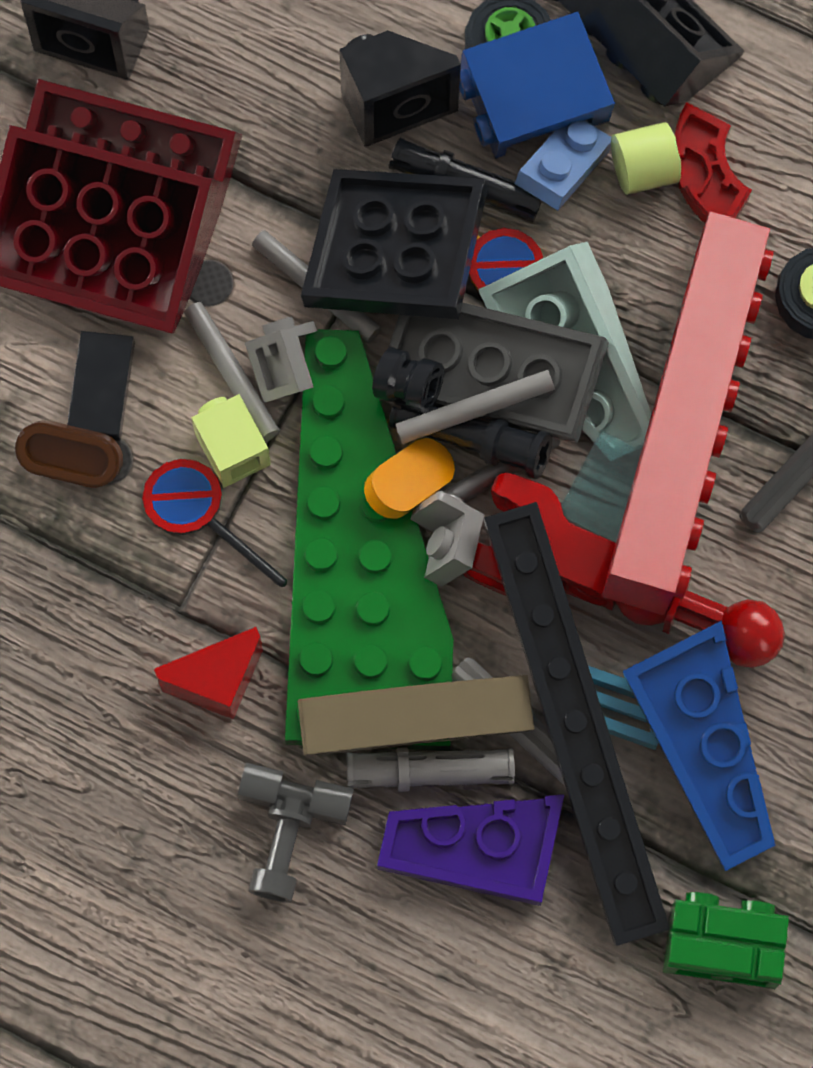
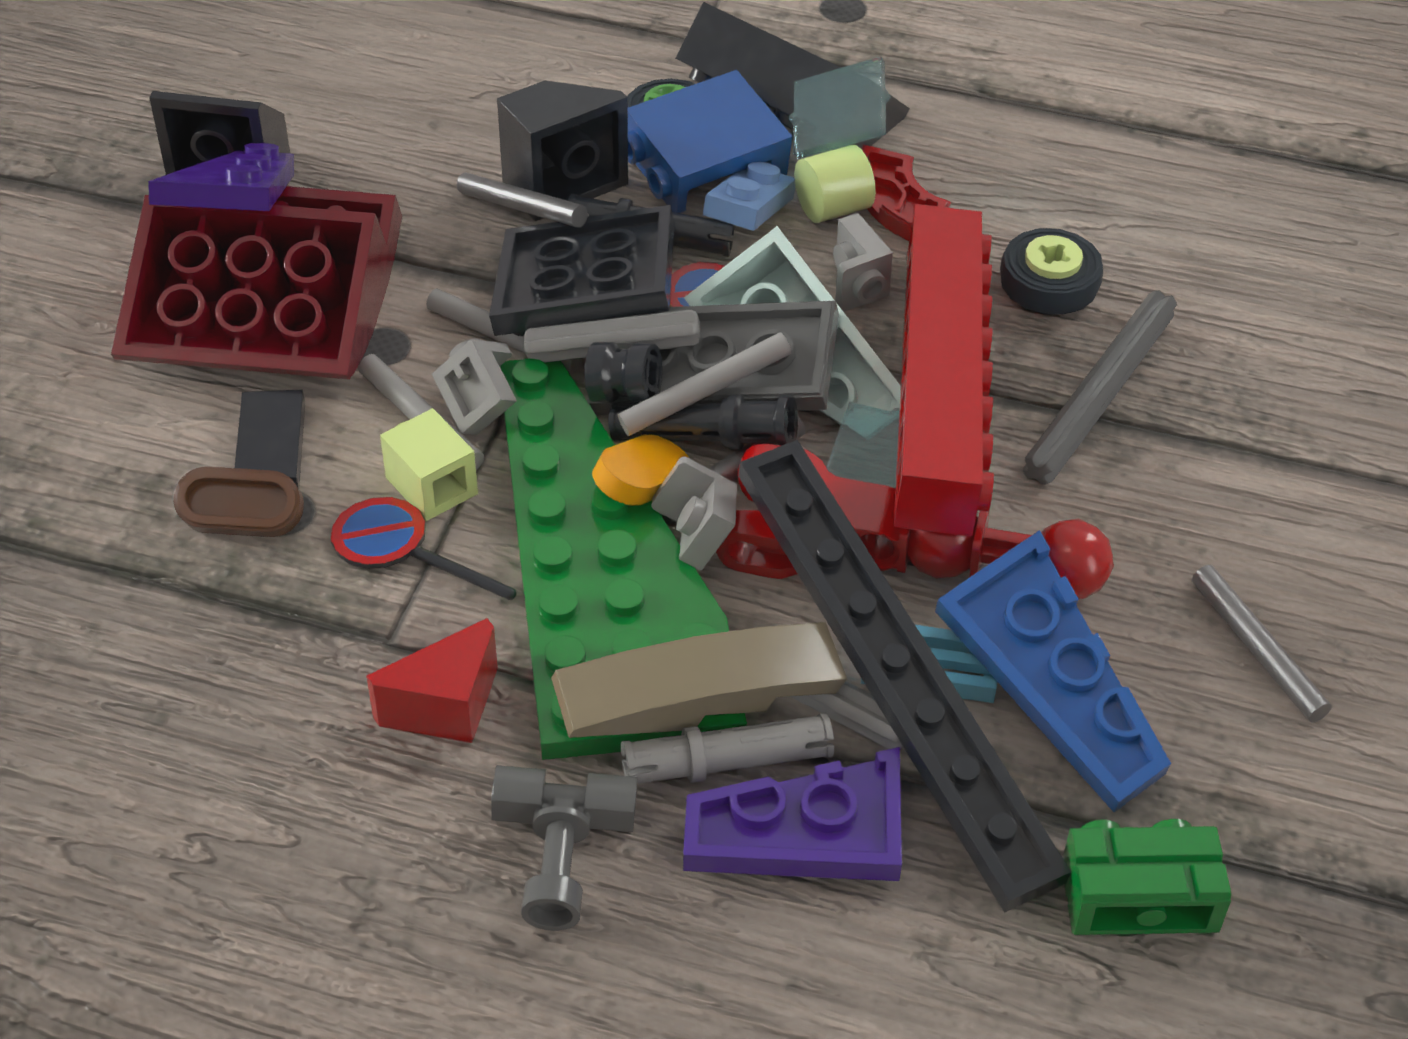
camera: 10 degrees left, 25 degrees down
(88, 114) = (233, 181): none -> dark purple wing
(352, 136) = (522, 199): none -> flat silver bar
(406, 332) = (574, 339): none -> light grey axle
(650, 260) = (861, 264): none -> light grey bracket
(664, 83) = (839, 108): none -> clear light blue piece

